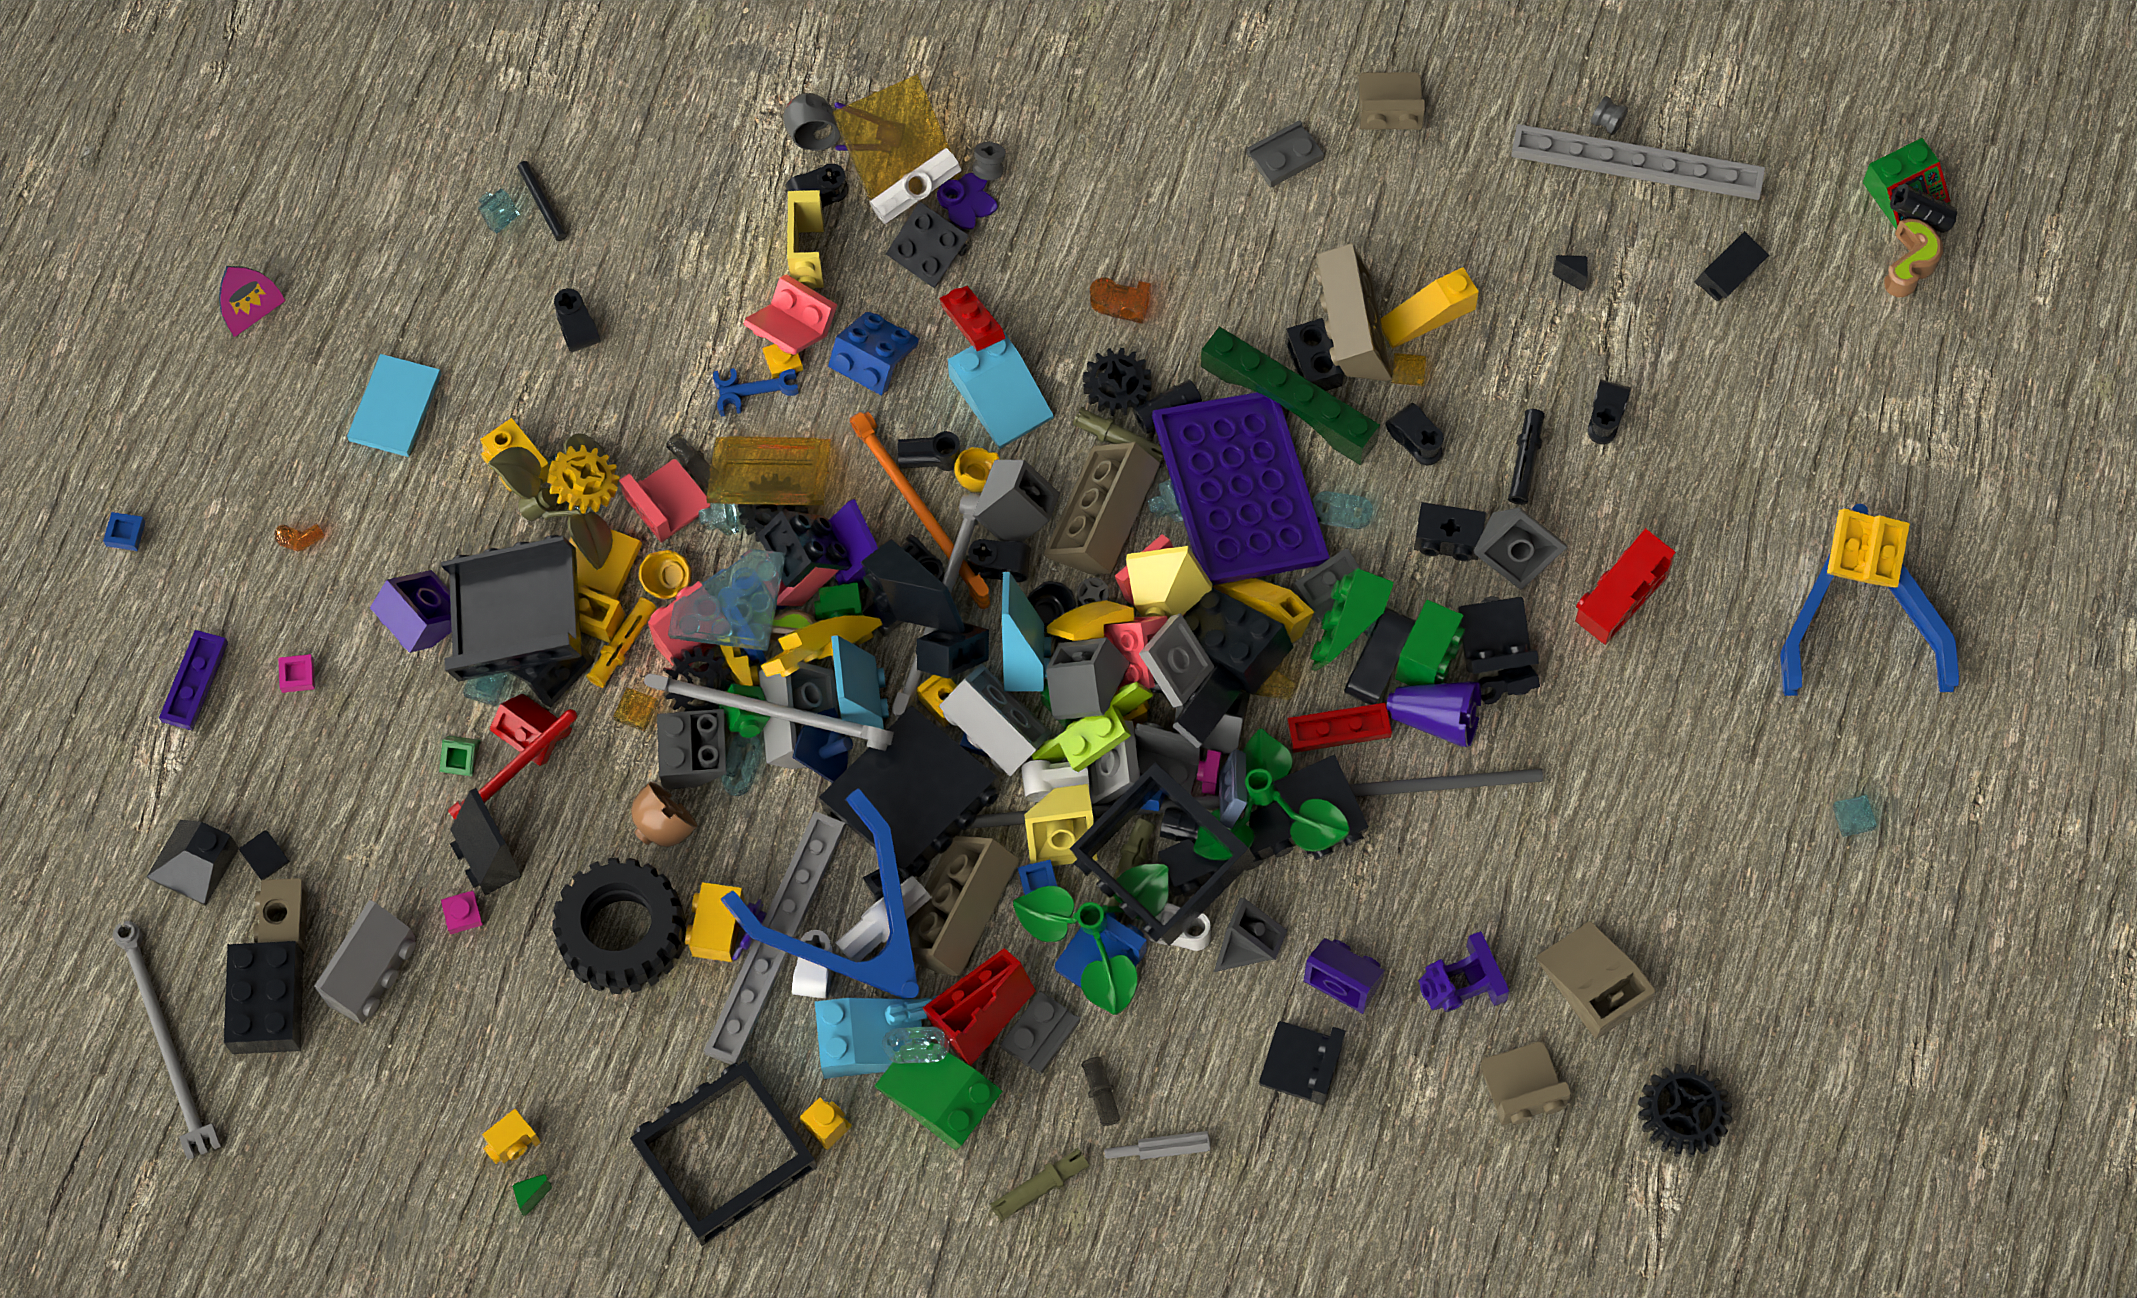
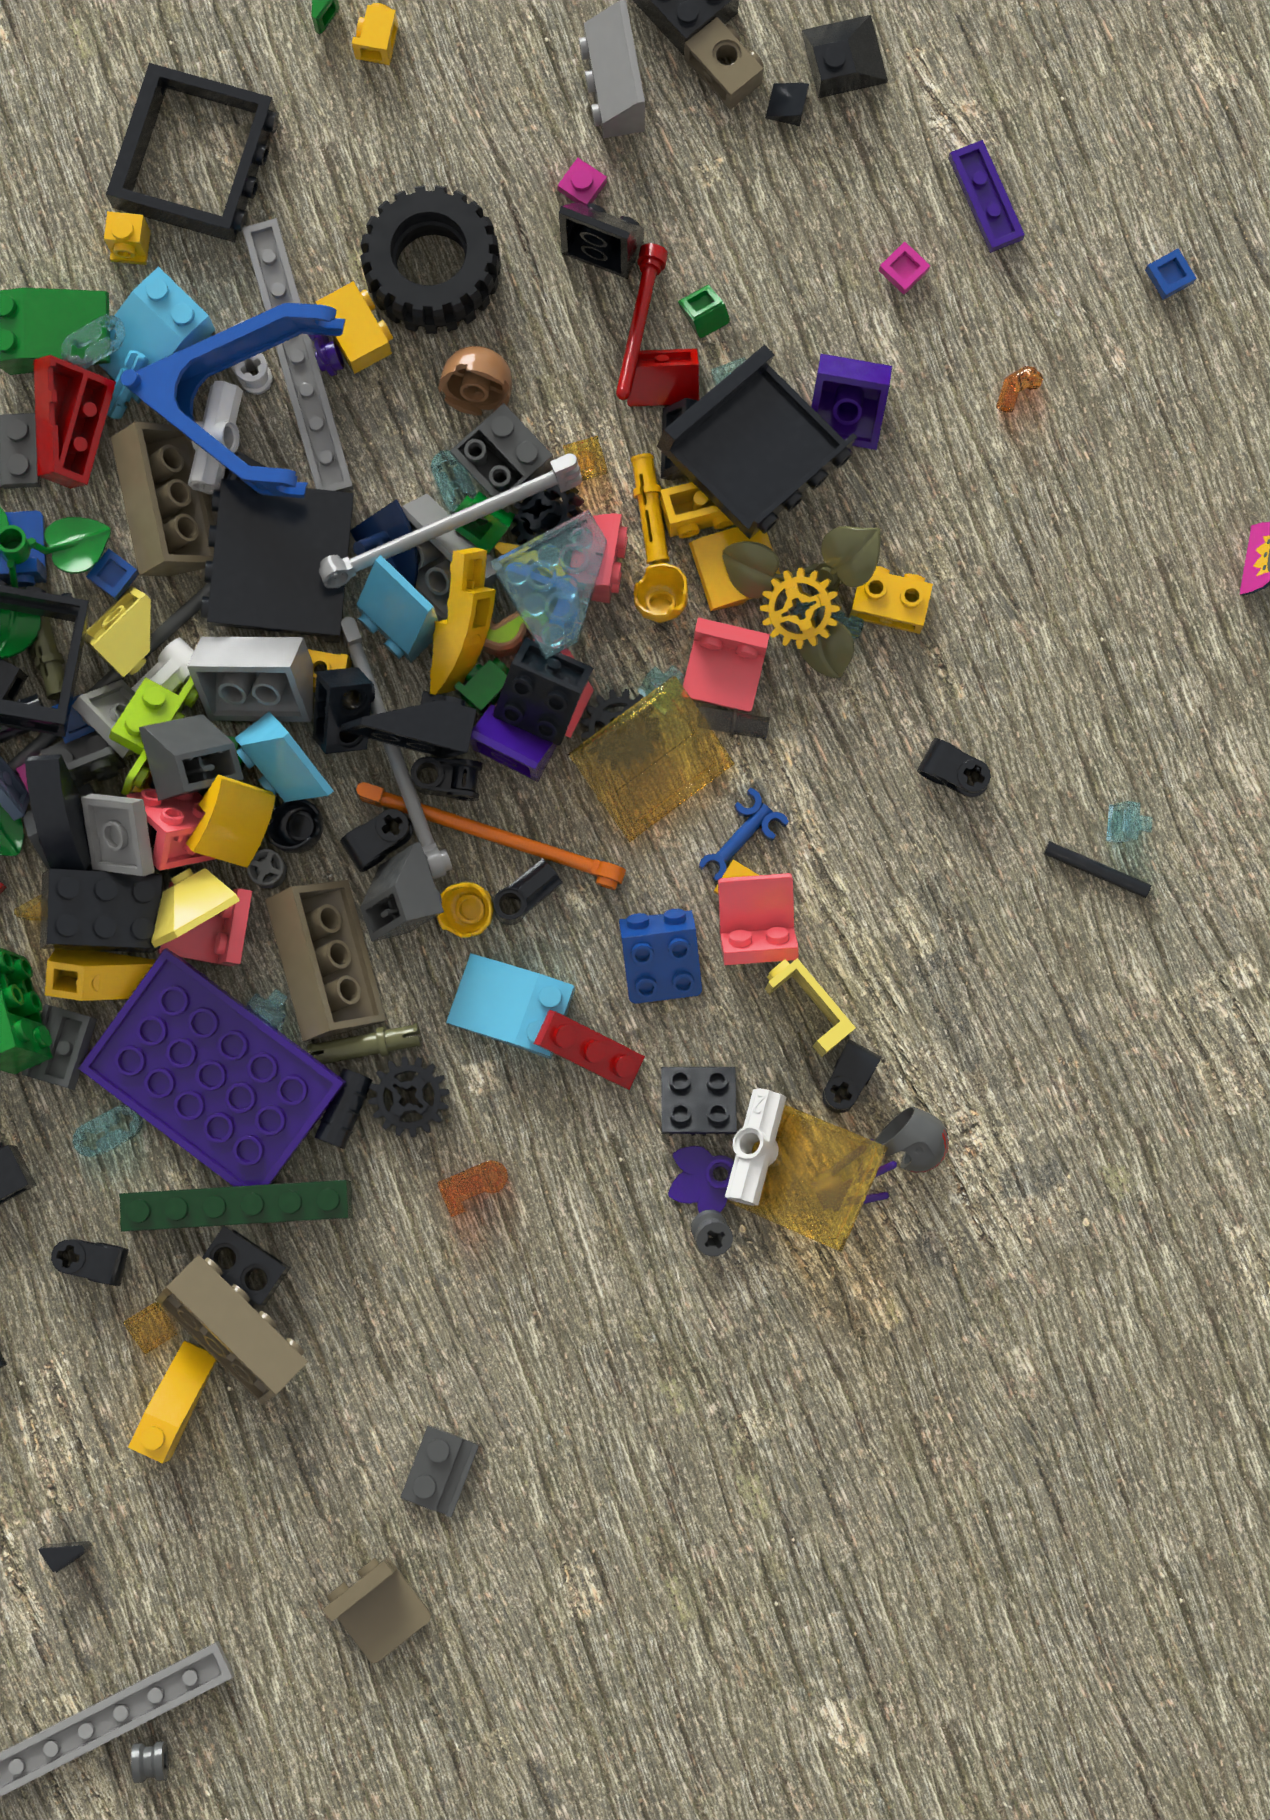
camera: 140 degrees right, 15 degrees up
(394, 405) = (1047, 570): medium azure tile -> none

